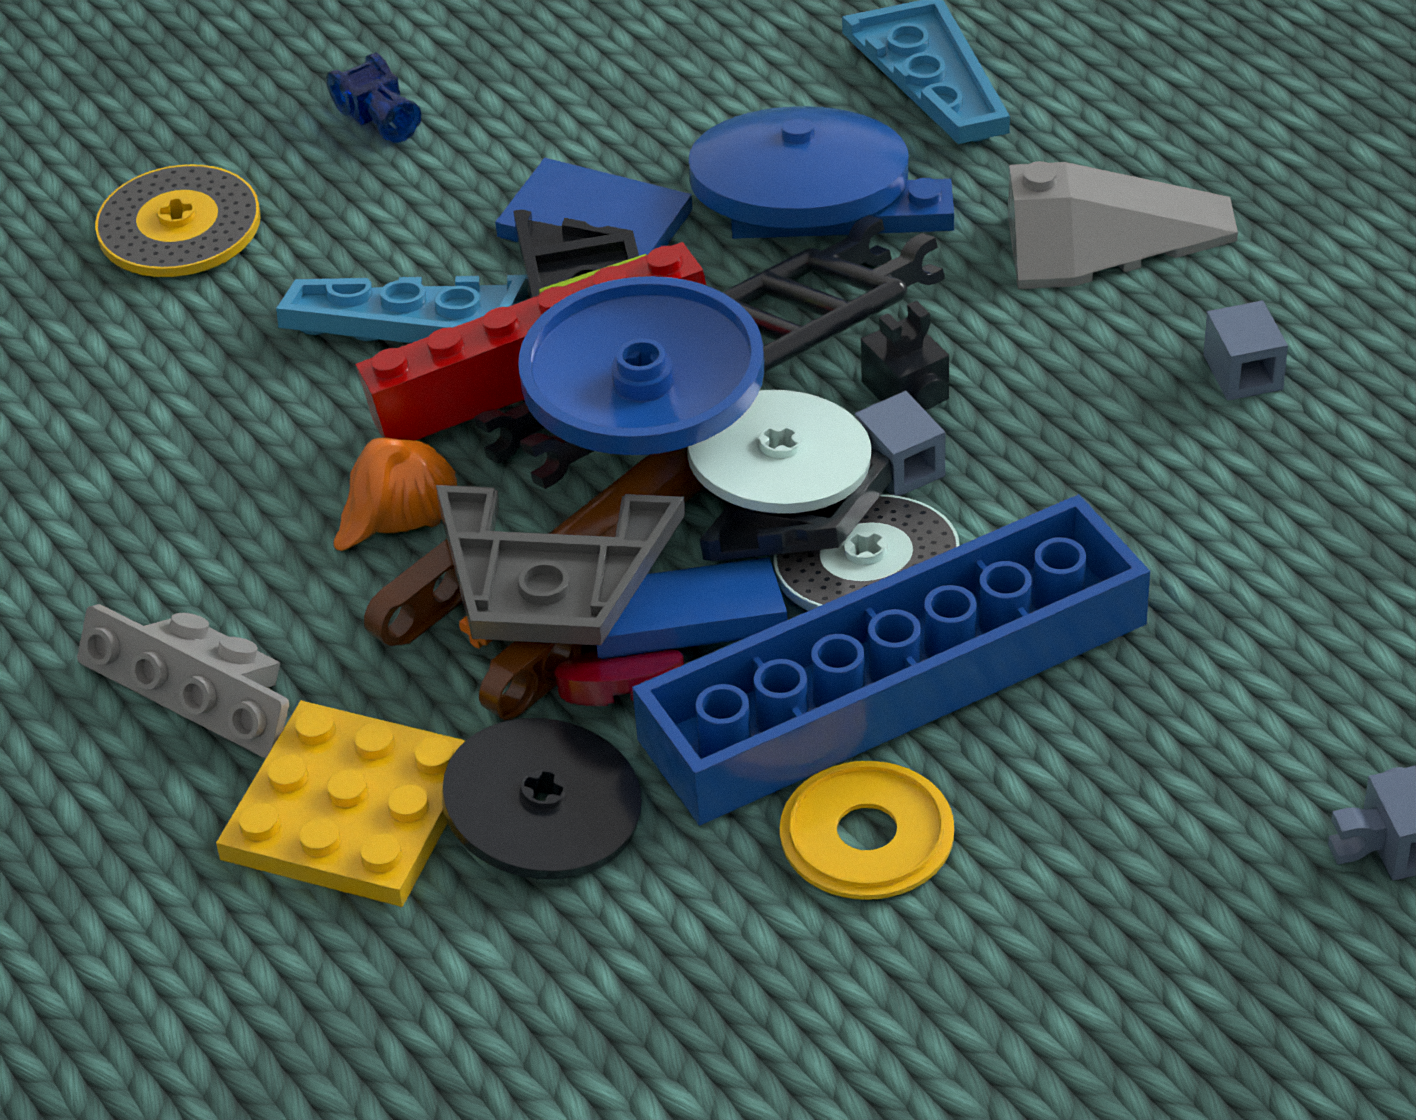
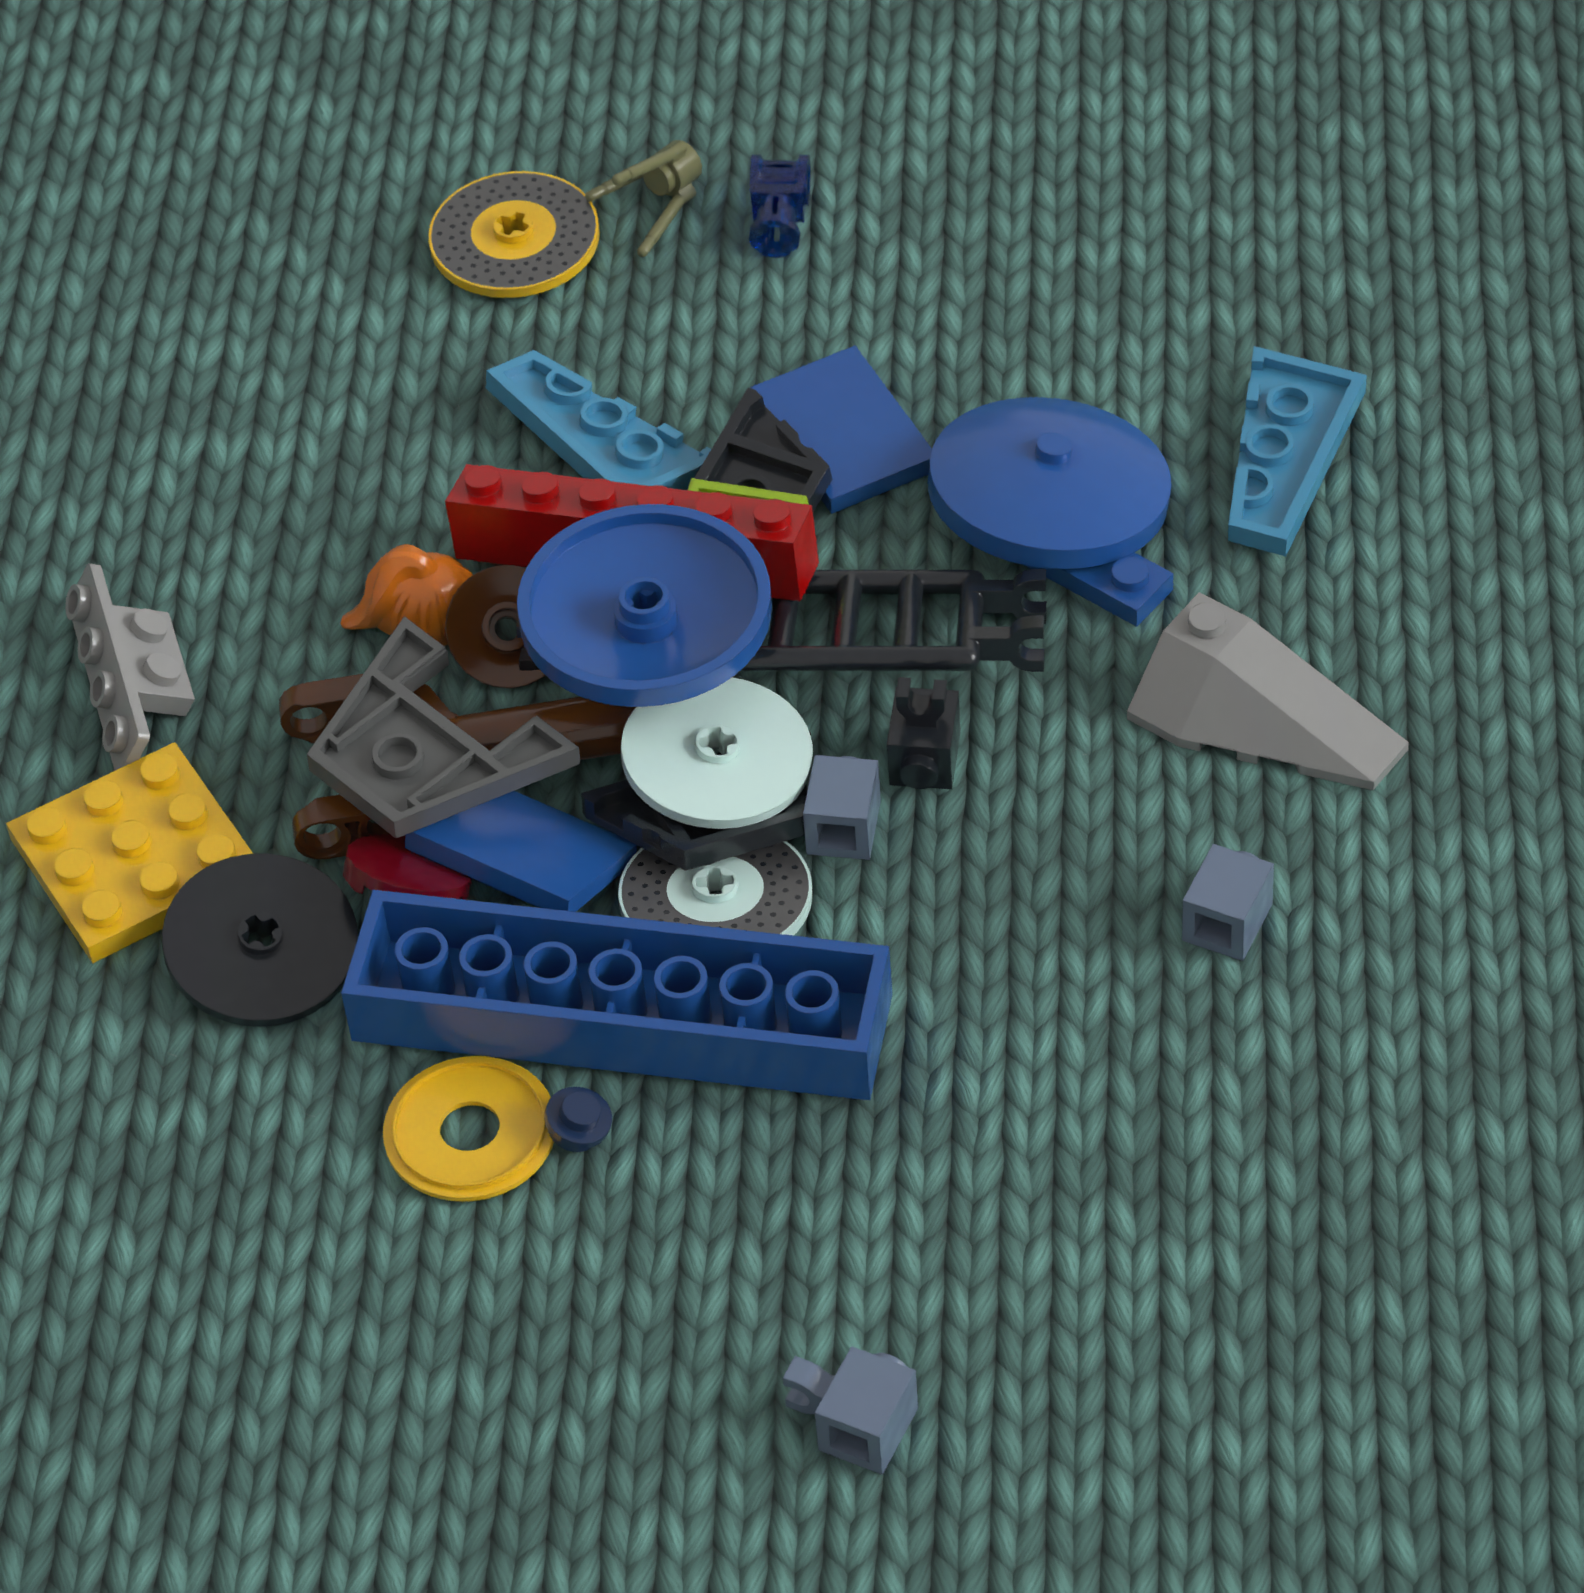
camera: 40 degrees right, 5 degrees up
(265, 121) = (664, 173): none -> olive plant
(493, 442) = (471, 628): none -> reddish brown dish
(952, 767) = (577, 1118): none -> dark blue plate

